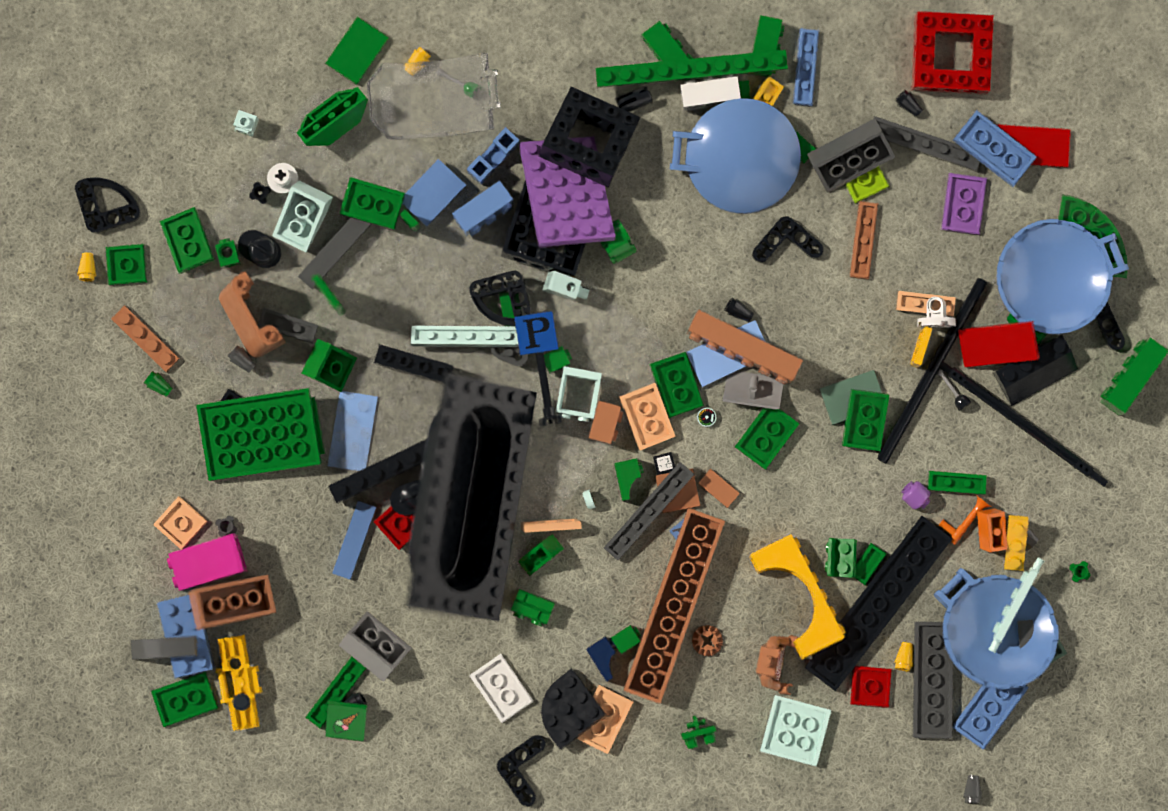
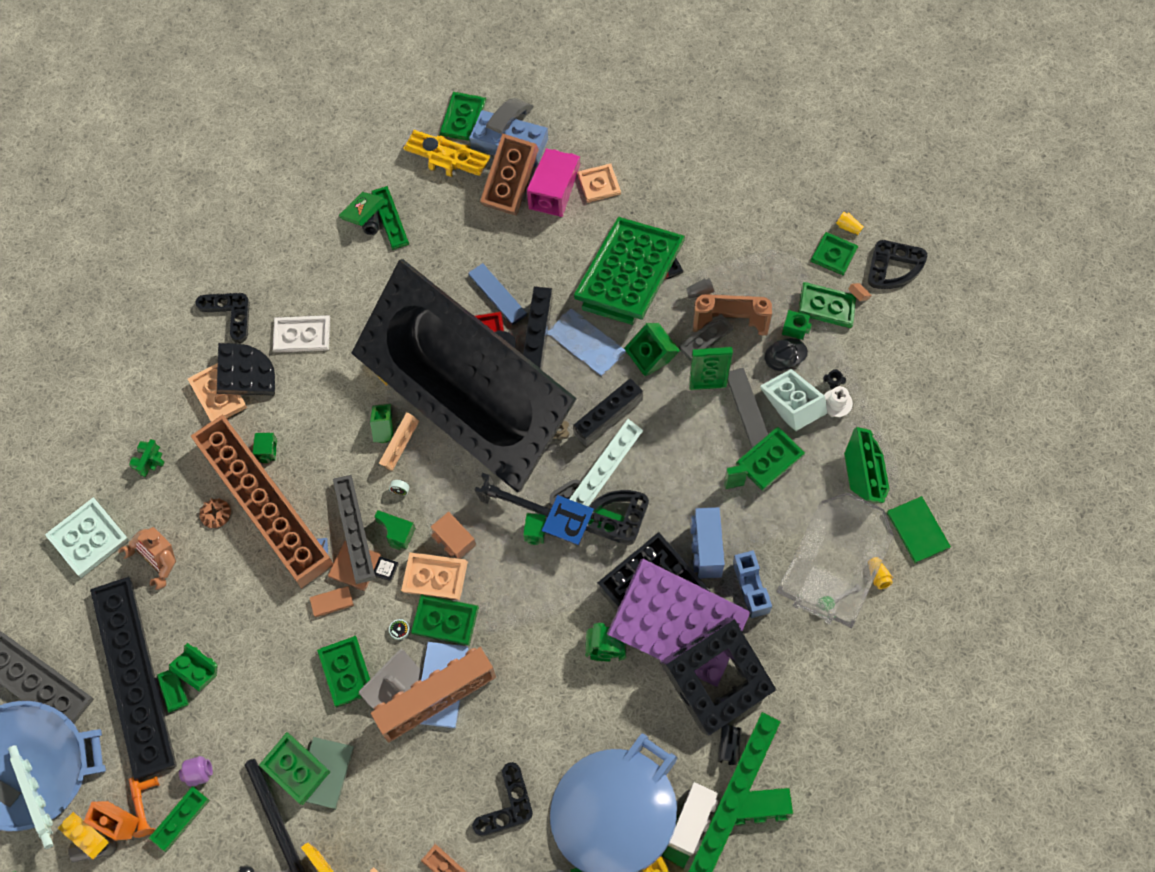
camera: 130 degrees right, 20 degrees down
(145, 338) = (763, 235): nougat plate -> none
(155, 219) = (859, 292): none -> nougat tile
(158, 384) = (720, 223): green cone -> none
(227, 521) = (574, 207): dark grey plate -> none
(245, 123) = (902, 400): light aqua window -> none
(375, 646) = (411, 250): light grey slope -> none
(433, 192) = (749, 515): medium blue tile -> none
(532, 607) = (345, 391): green brick -> none
(557, 283) = (598, 565): light aqua torso -> none
(582, 374) = (507, 542): light aqua window -> none
(601, 654) = (267, 419): dark blue arch -> none
(739, 310) = (475, 716): black cone -> none
(786, 557) = (230, 619): yellow arch -> none
(870, 686) = (71, 624): red tile -> none
(904, 658) = (70, 668): yellow cone -> none

